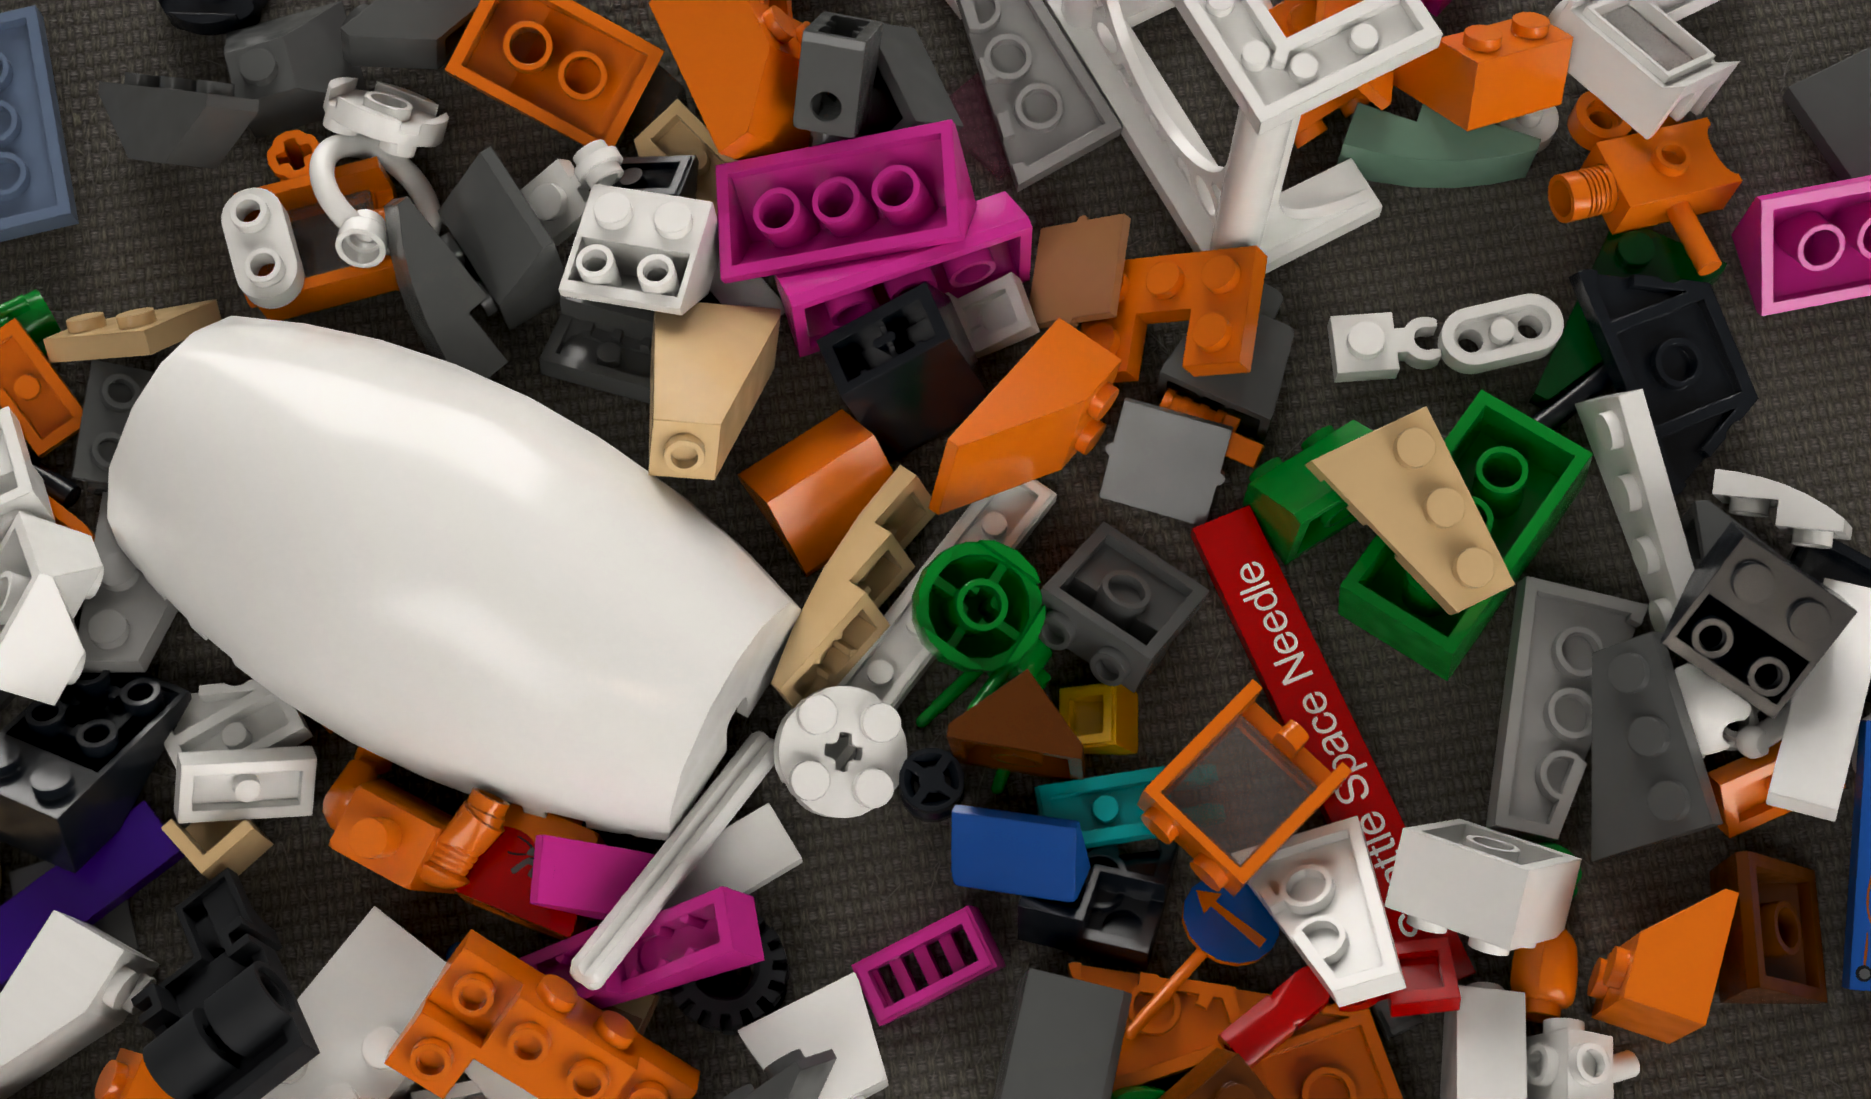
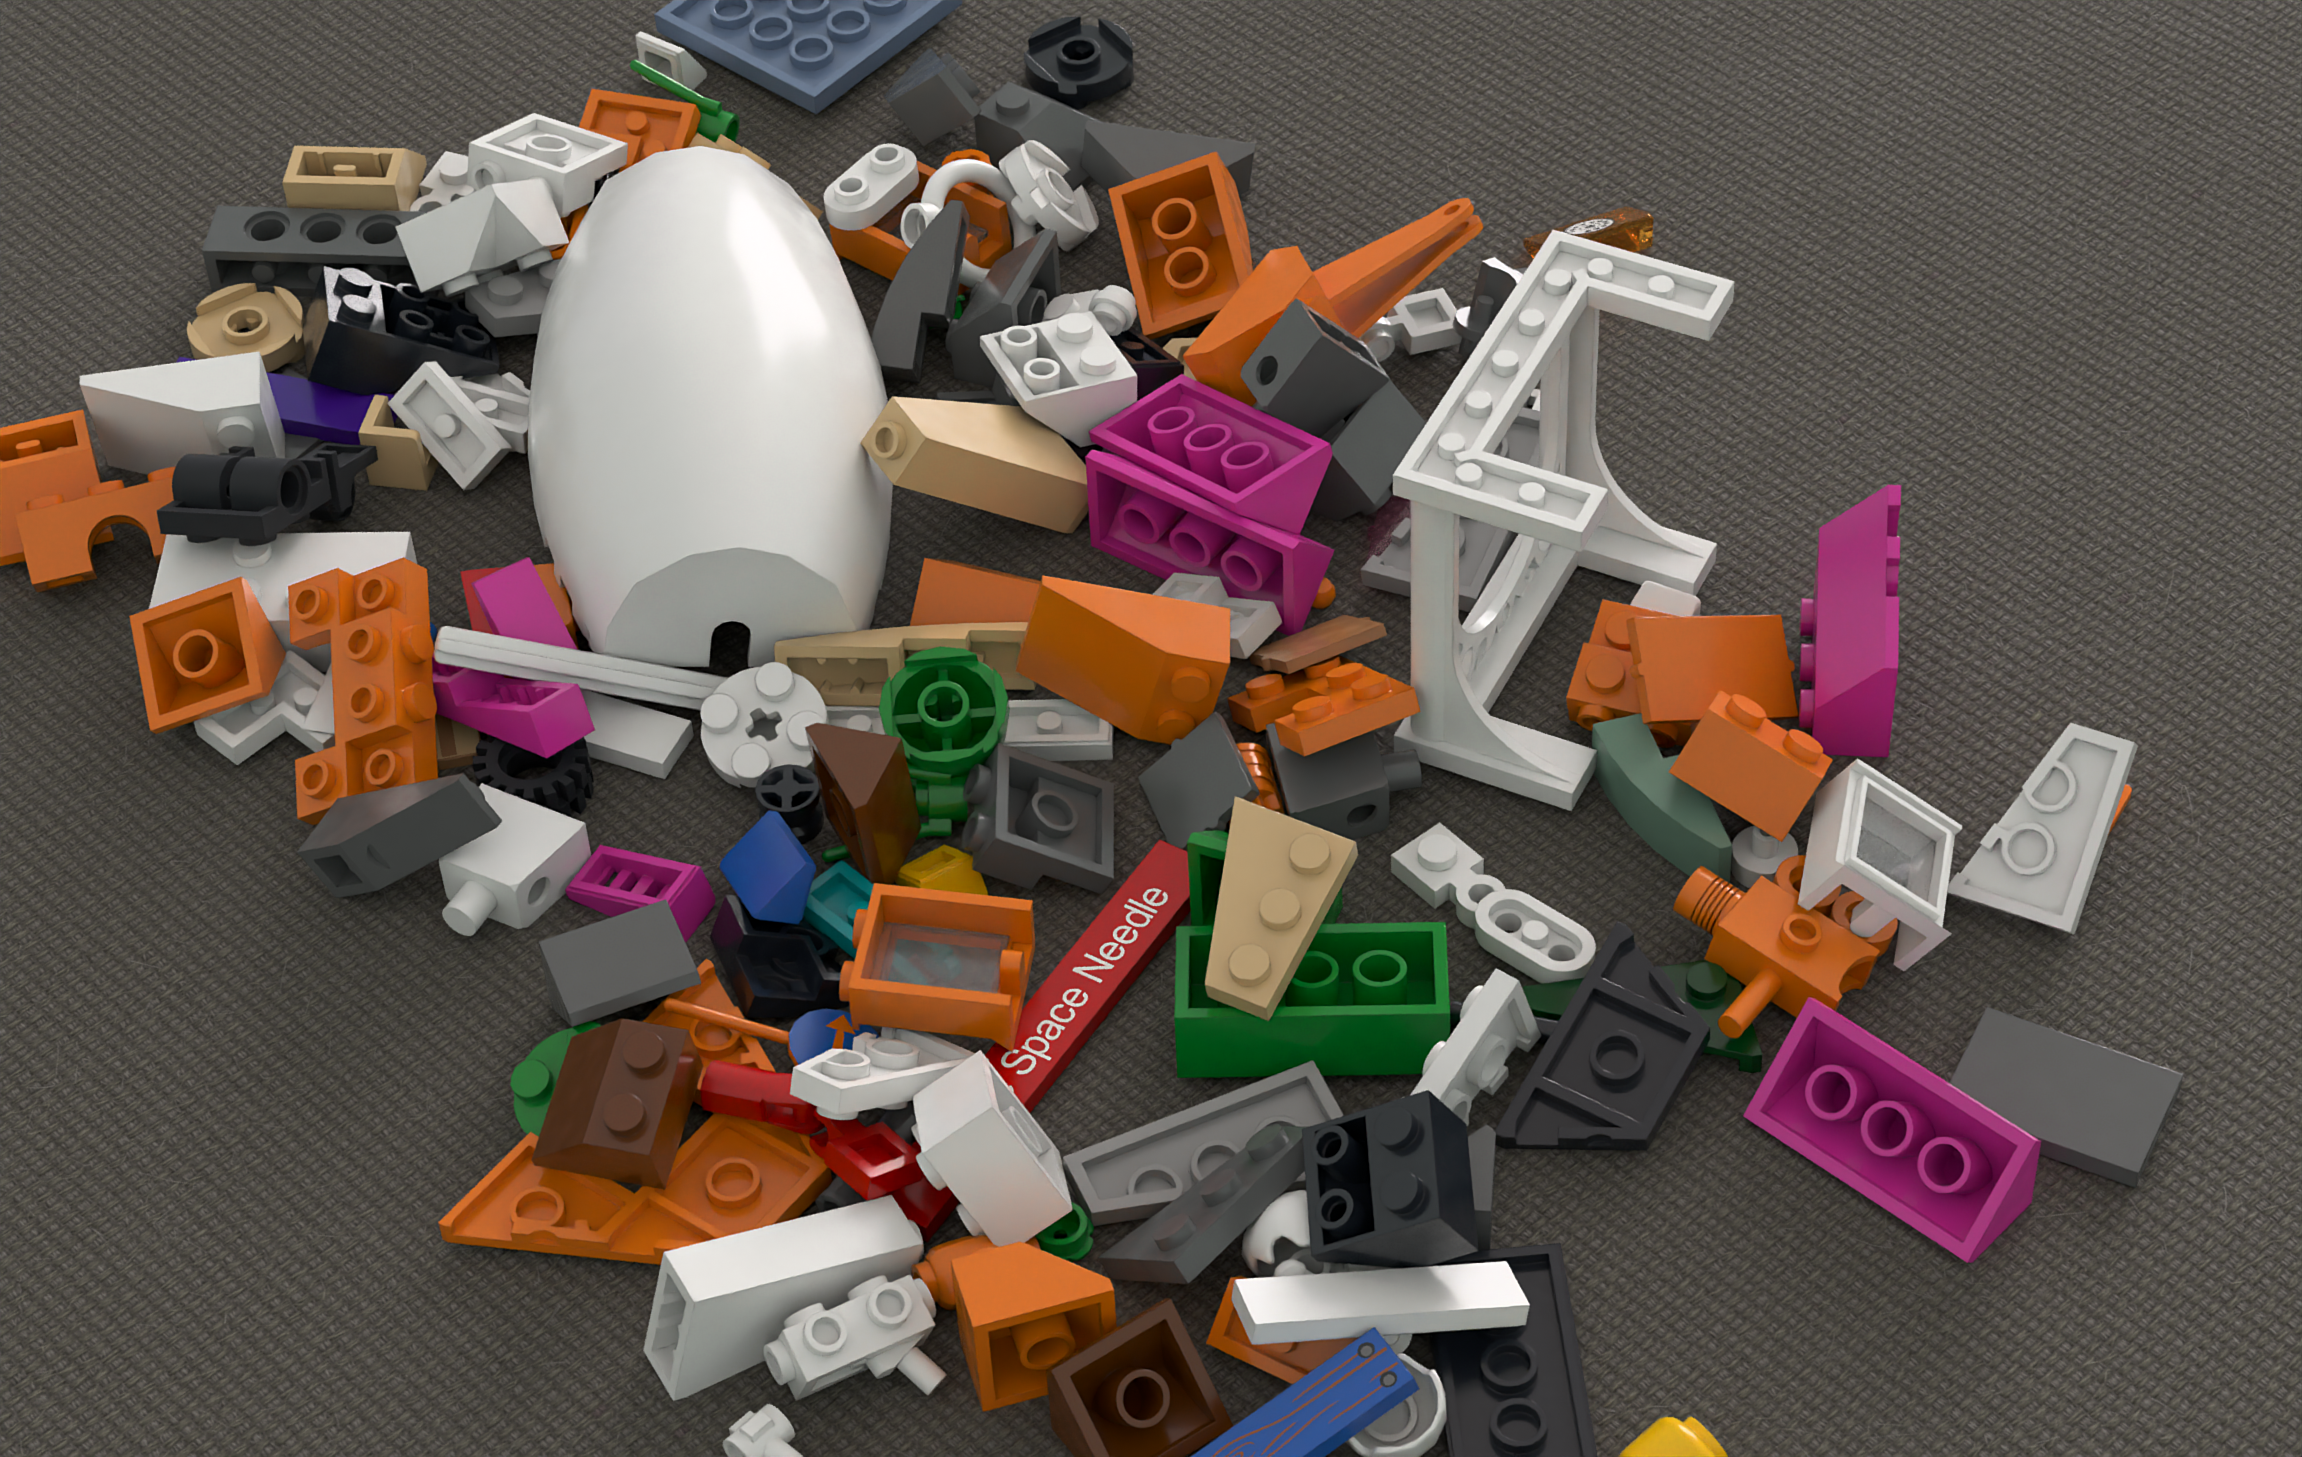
camera: 55 degrees right, 25 degrees down
(404, 834) = (481, 514): orange torso -> none
(906, 370) = (1132, 553): black slope -> none
(1798, 514) = (1547, 1204): white slope -> none

